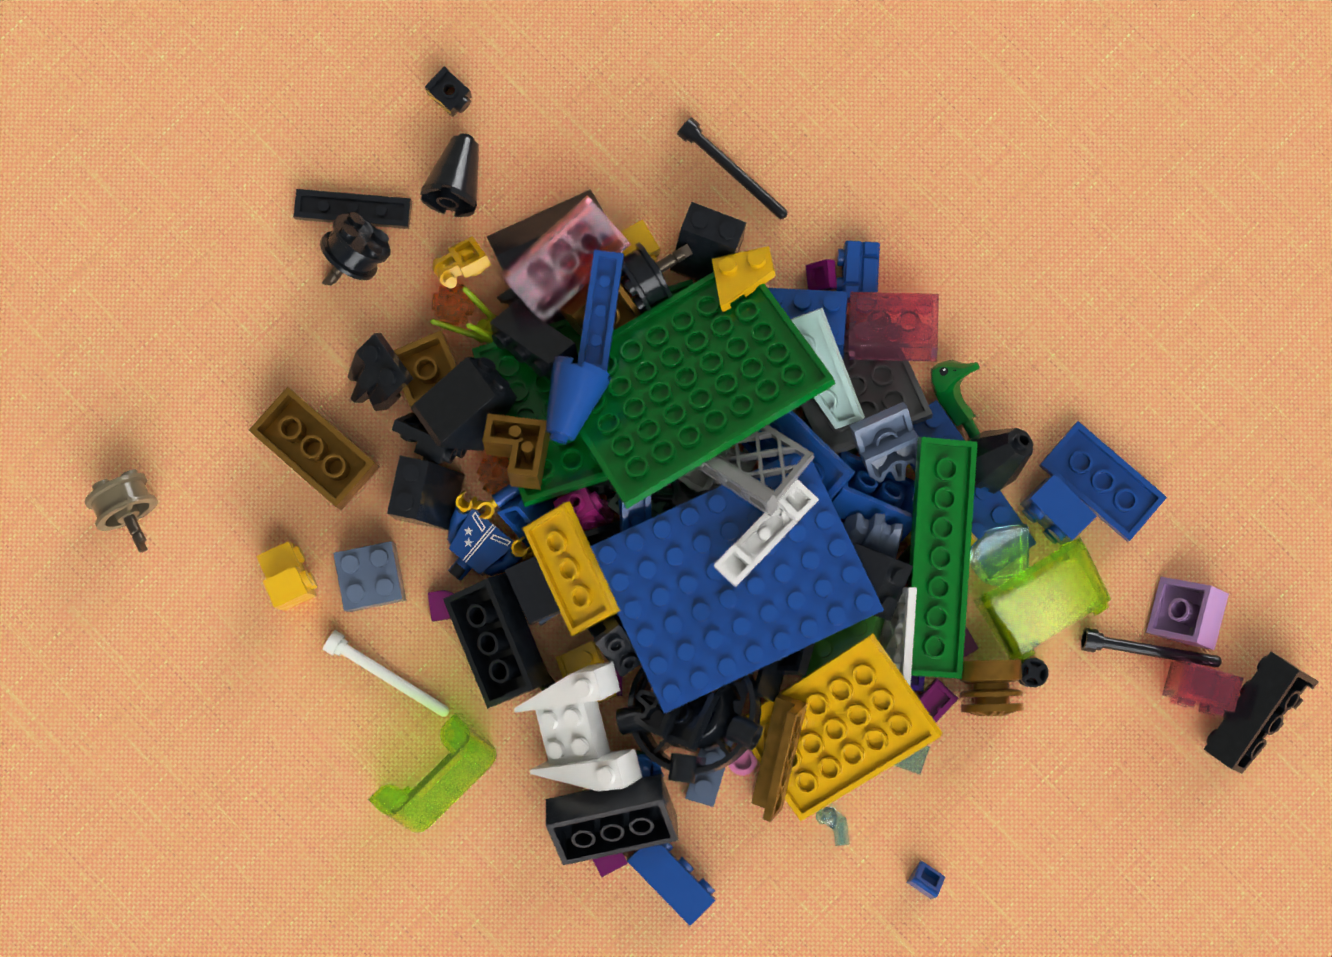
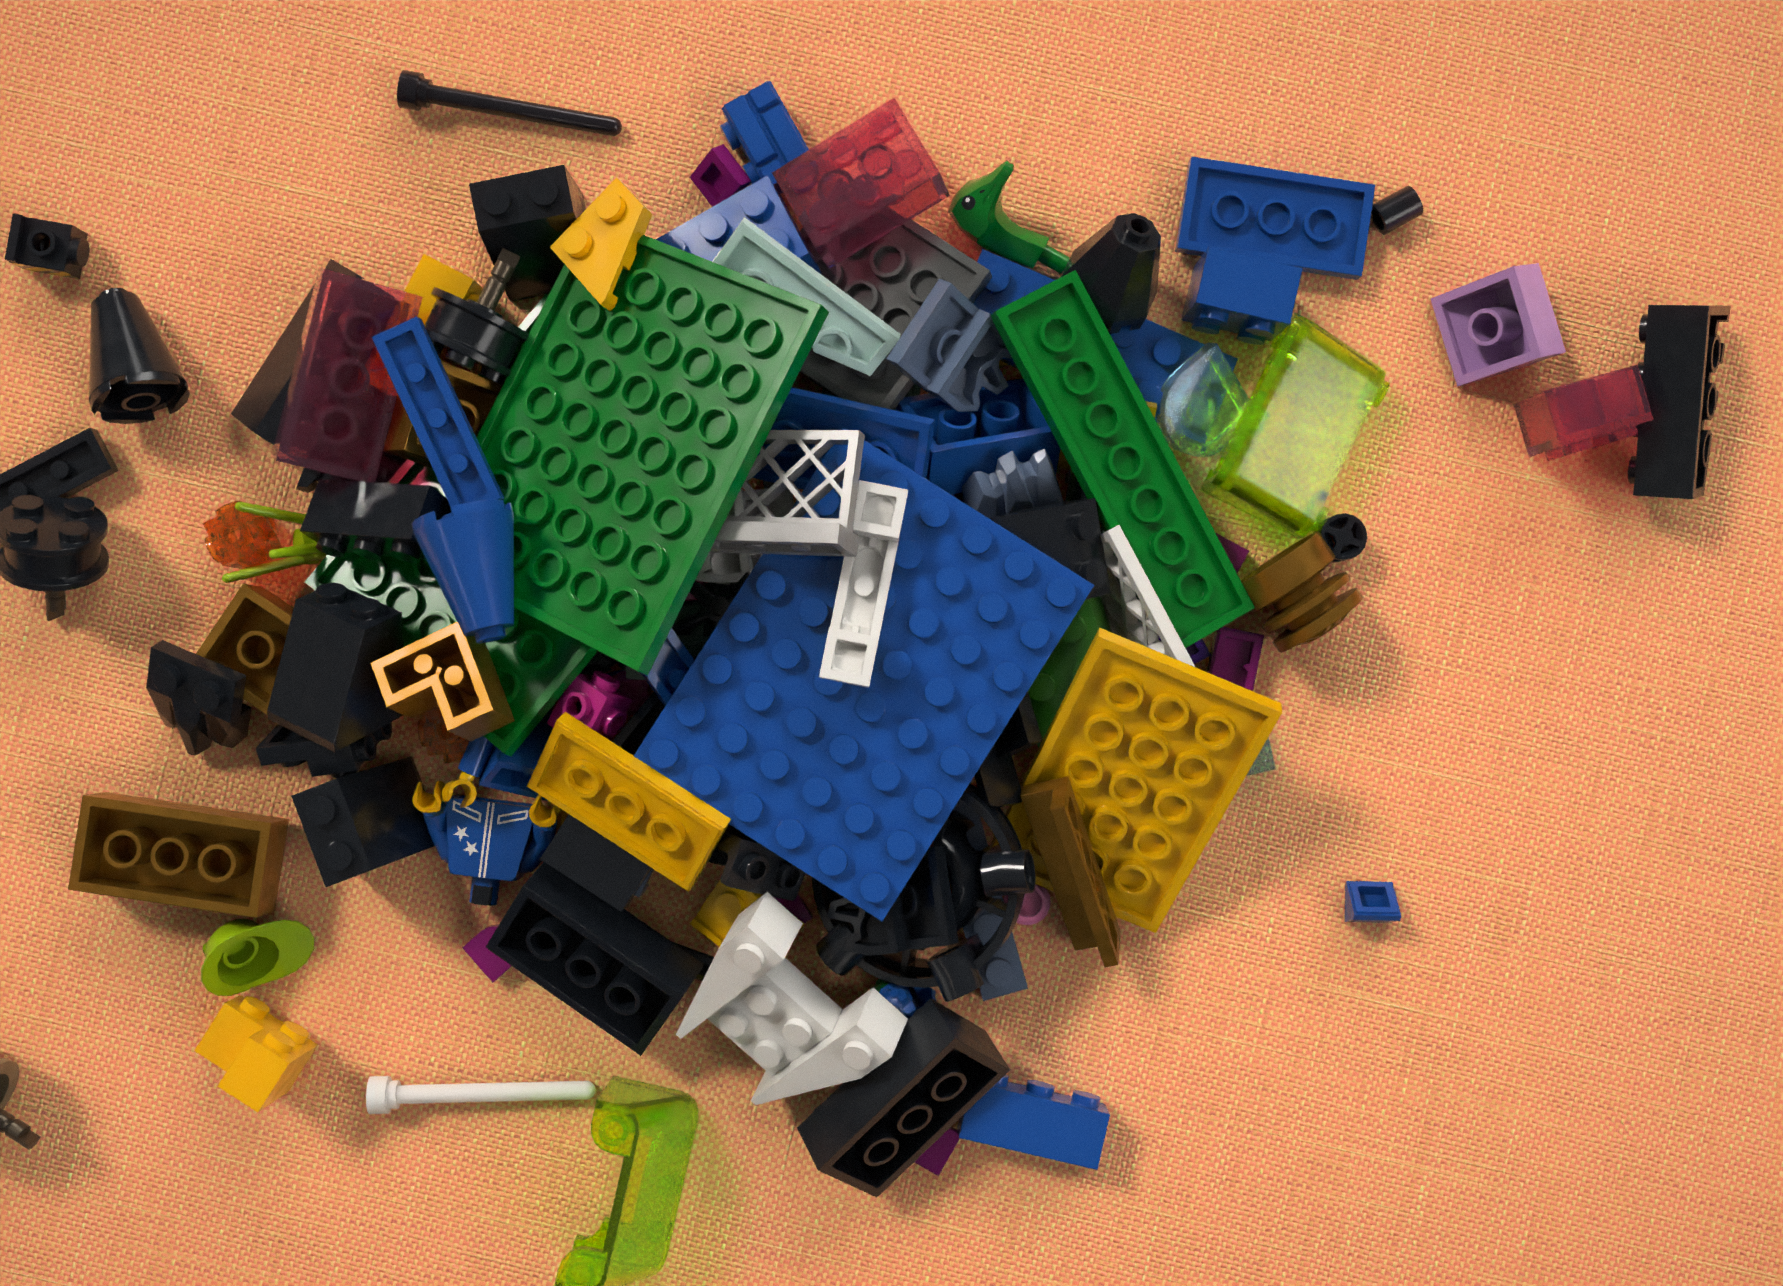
camera: 30 degrees left, 5 degrees up
(318, 526) = (252, 954): none -> lime piece
(369, 576) = (368, 977): sand blue brick -> none
(463, 259) = (214, 466): yellow plate -> none
(835, 821) = (1204, 902): clear light blue arm -> none
(1093, 641) = (1395, 441): black piece -> none
(1170, 517) = (1396, 210): none -> black hinge

